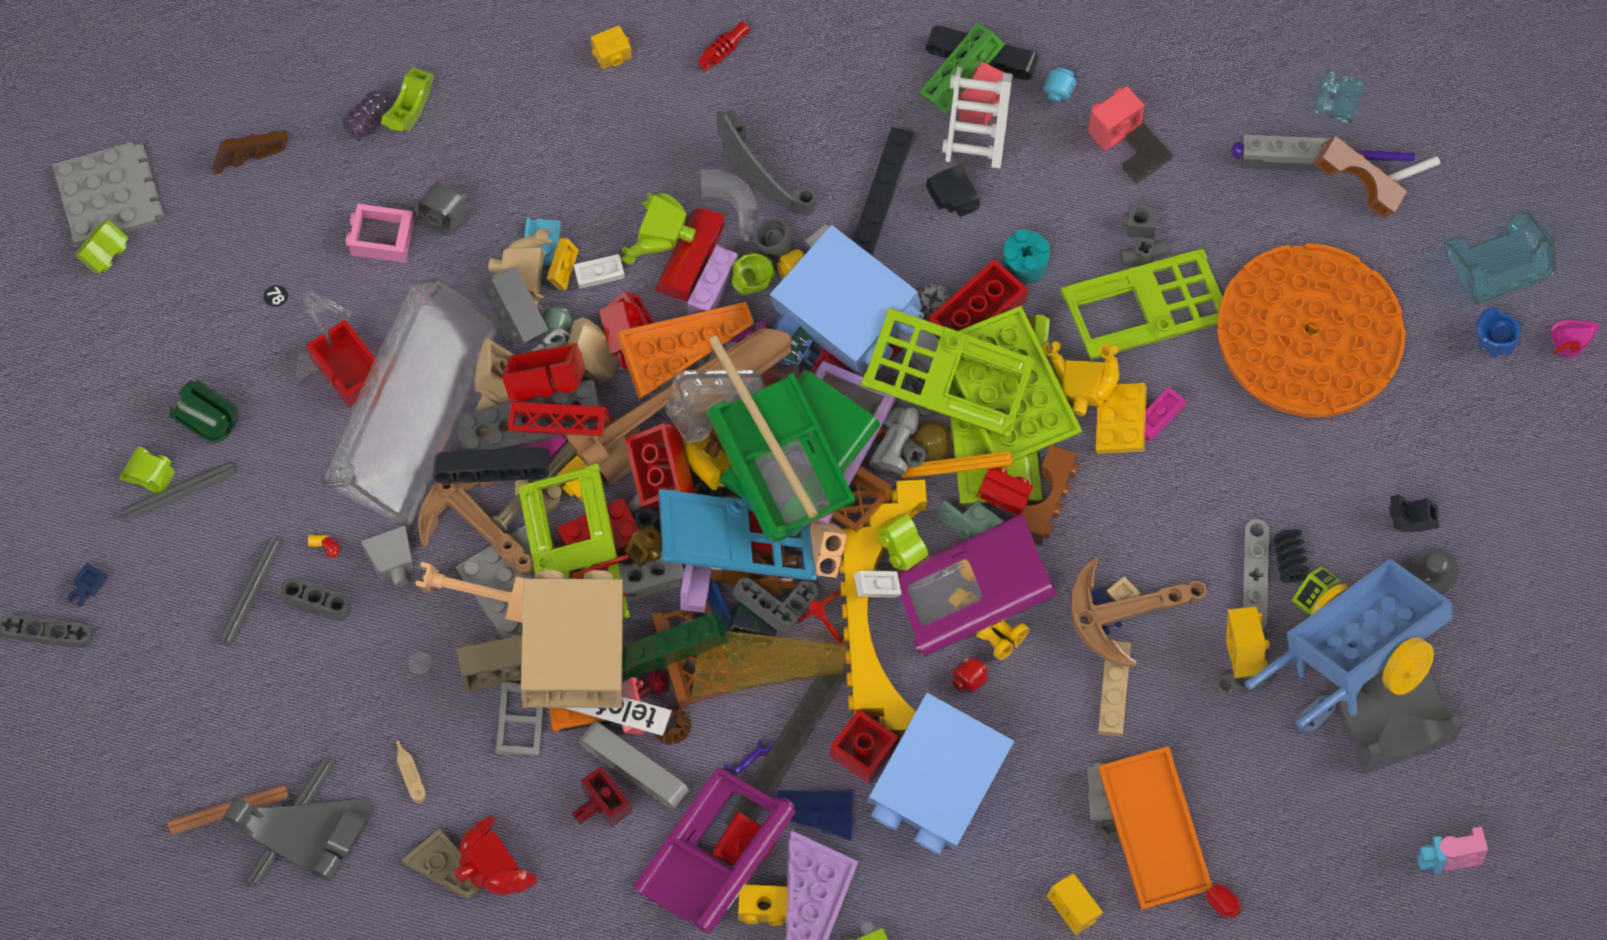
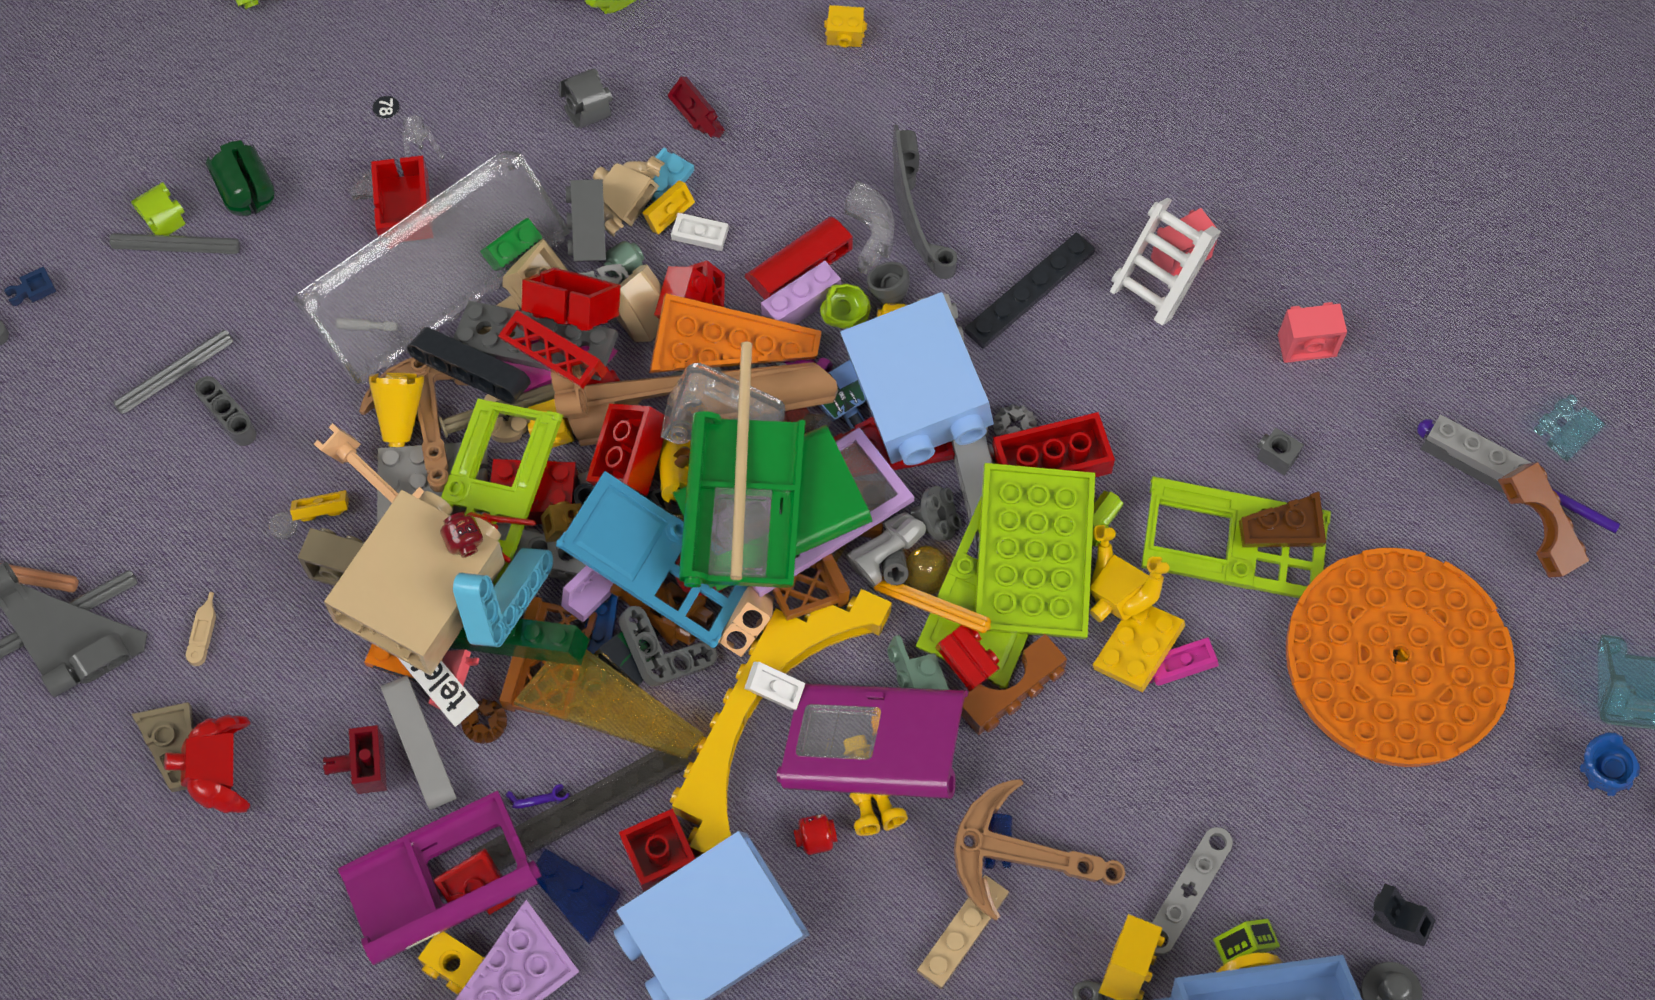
camera: 30 degrees right, 0 degrees up
(326, 542) = (274, 362): arm -> none
(381, 251) = (535, 108): bright pink window -> none
(390, 555) = (324, 403): light grey torso -> none
(440, 632) = (311, 507): none -> yellow plate
(454, 524) = (396, 405): none -> yellow cone
(460, 355) = (511, 244): none -> green brick
(516, 750) = (335, 674): light grey window -> none
(532, 173) = (695, 108): none -> dark red hinge
(595, 586) = (461, 534): none -> dark red head
(643, 620) = (493, 611): none -> medium azure beam
(657, 682) = (496, 669): dark red plate -> none
(660, 227) = (779, 216): lime torso -> none
(722, 46) = (955, 76): red hinge -> none
(818, 611) = (697, 683): red plant -> none
(902, 542) = (828, 655): lime brick -> none
(942, 370) = (969, 497): lime door -> none
(953, 191) = (1100, 325): black piece -> none
(977, 52) = (1207, 196): bright green fence -> none
(1009, 59) = (1201, 192): black beam -> none
(1026, 256) = (1135, 427): teal brick -> none
(1059, 84) = (1274, 272): medium azure head -> none
(1122, 590) = (1032, 830): tan plate -> none
(1150, 153) = (1329, 389): clear smoke plate -> none
(1150, 248) = (1274, 487): dark grey axle -> none
(1179, 274) = (1288, 525): none -> reddish brown wing
(1289, 556) = (1236, 889): black piece -> none
(1414, 169) = (1611, 542): white bar -> none

